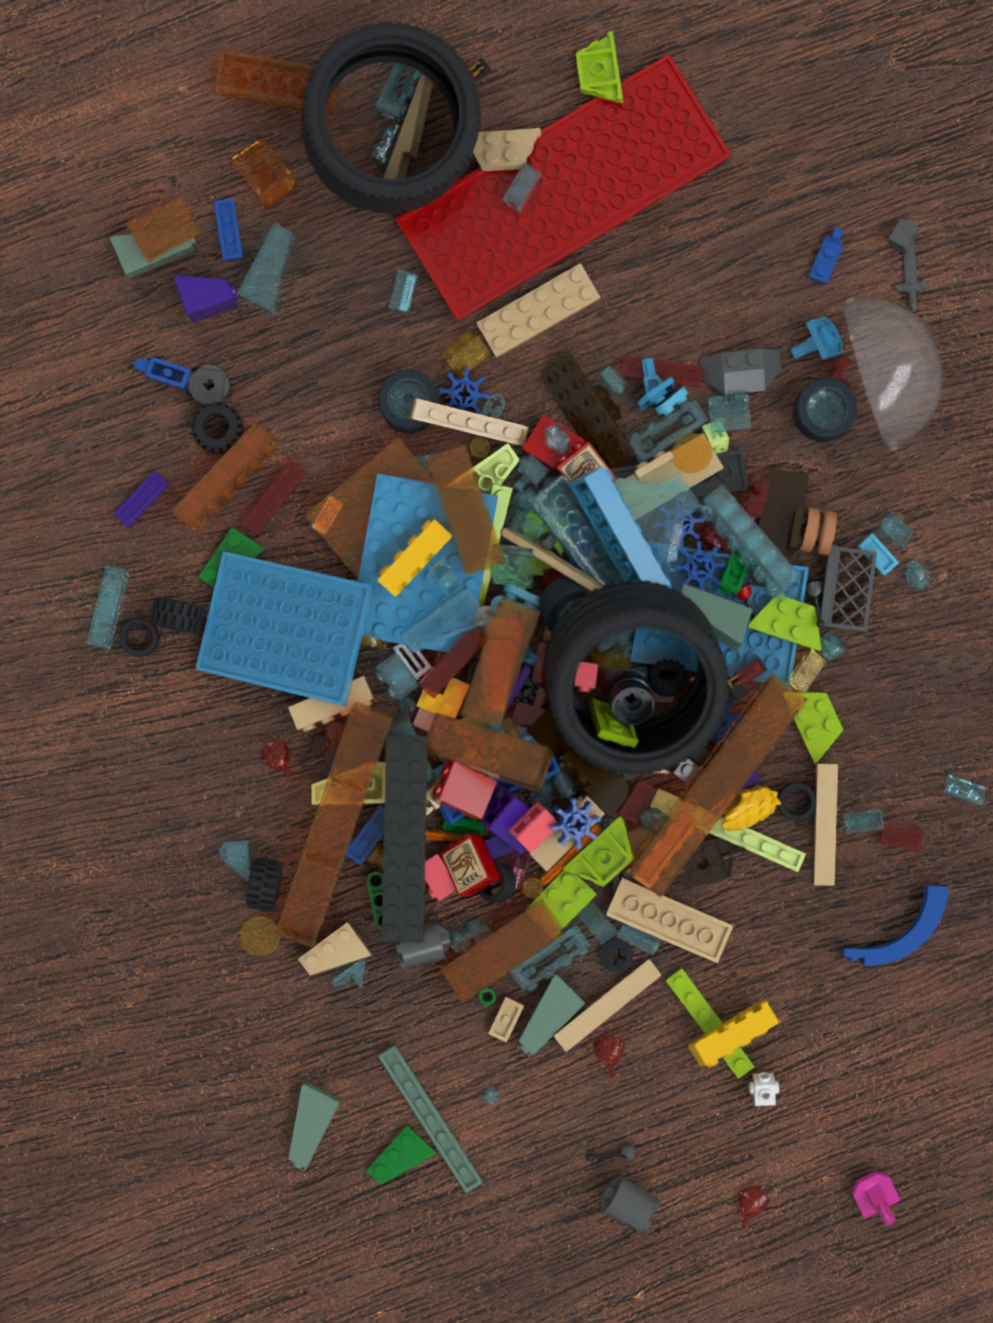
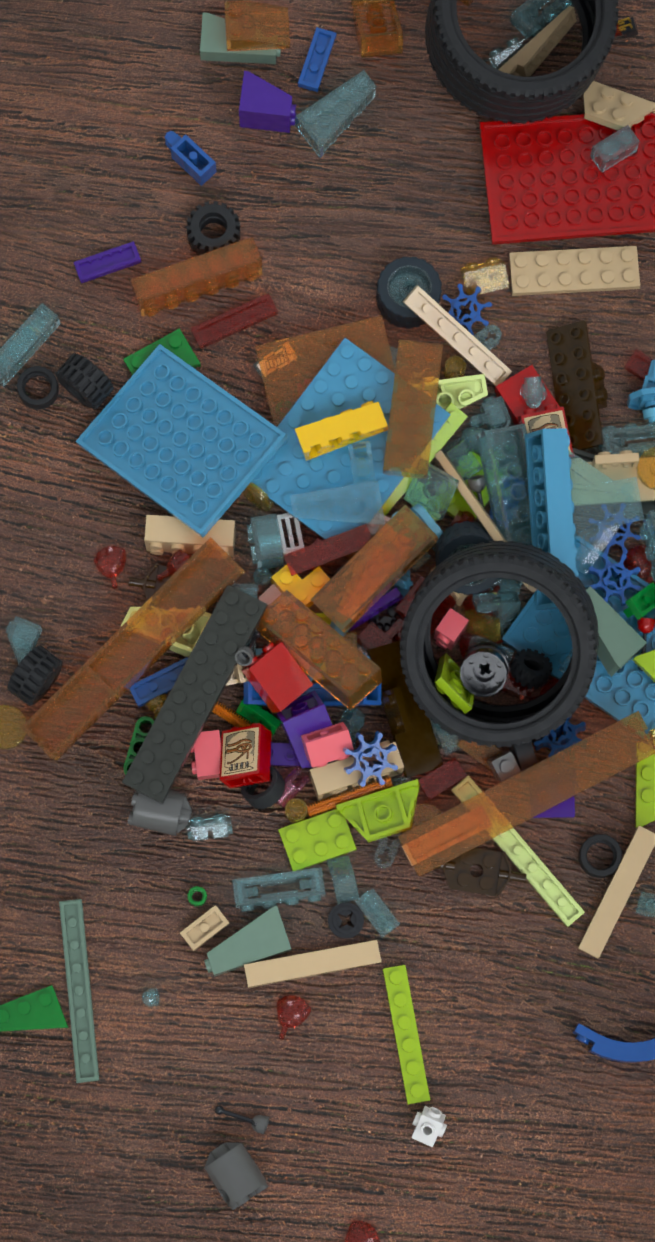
camera: 20 degrees right, 10 degrees down
(218, 378) = (222, 179): dark grey plate -> none
(335, 950) = (70, 775): tan wedge -> none
(357, 972) = (81, 806): clear light blue slope -> none
(403, 291) = (454, 192): clear light blue tile -> none
(430, 788) = (243, 653): none -> dark grey hinge
(502, 950) = (235, 856): clear orange brick -> none
(563, 784) = (377, 721): clear light blue brick -> none
(613, 381) = (614, 367): clear light blue brick -> none
(651, 818) = (446, 799): clear light blue rock -> none
(669, 920) = (416, 909): tan plate -> none
(733, 1033) = (424, 1052): yellow wedge -> none
(745, 675) = (608, 706): clear red piece -> none
(750, 808) = (549, 835): yellow head -> none

